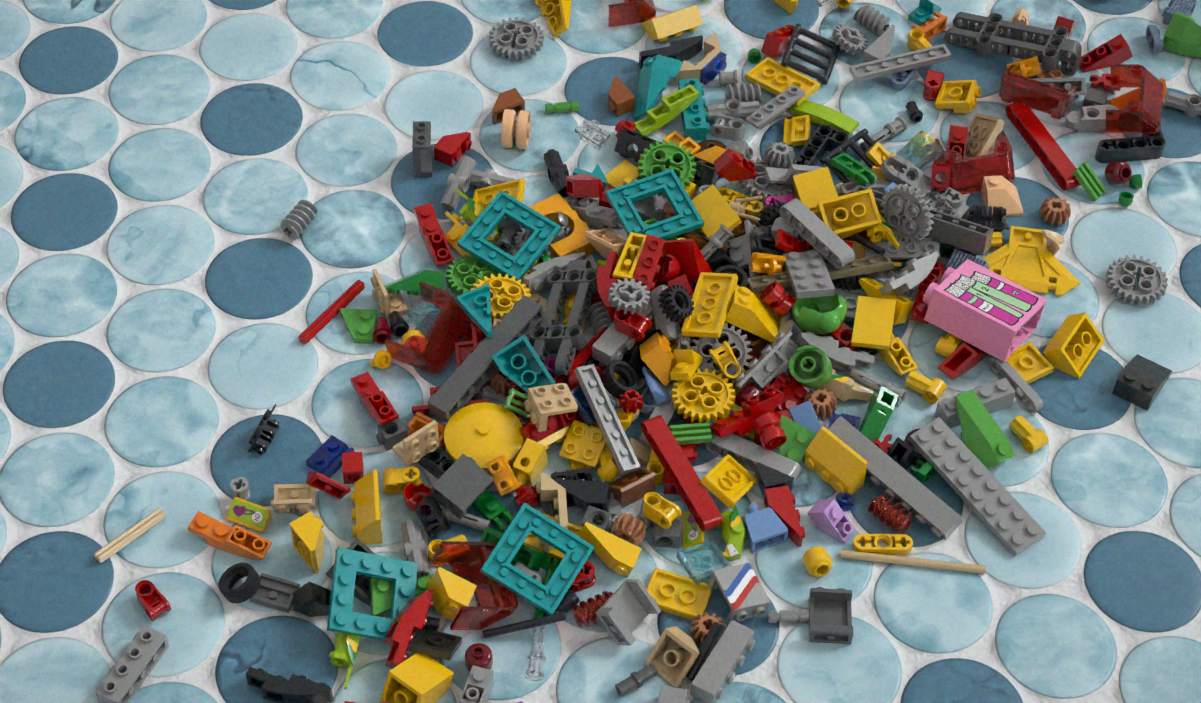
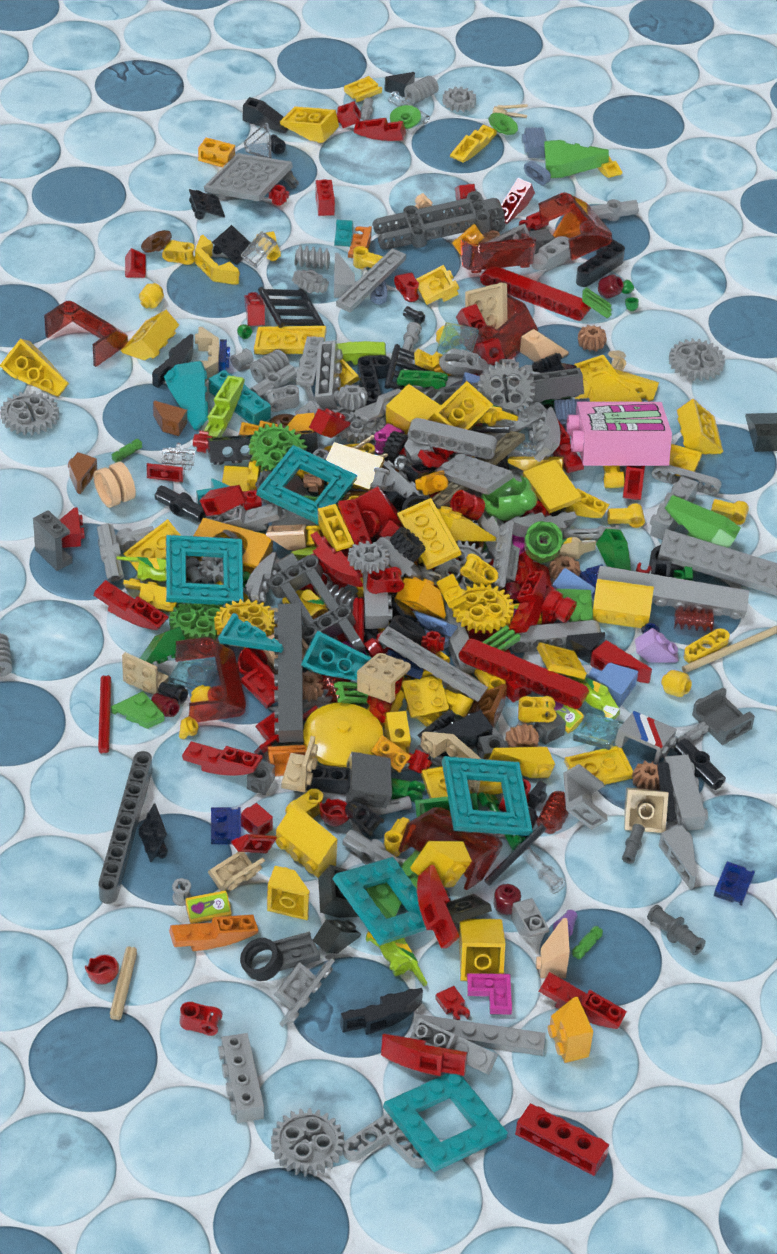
camera: 40 degrees left, 5 degrees down
(122, 514) = (102, 969): none -> red hair
(247, 623) = (297, 988): none -> light grey bracket
(252, 411) = (125, 827): none -> dark grey beam
(572, 141) = (165, 472): none -> red slope
(596, 585) = (537, 795): none -> black plate
(764, 655) = (702, 764): none -> black piece
(779, 124) = (328, 374): none -> light grey brick

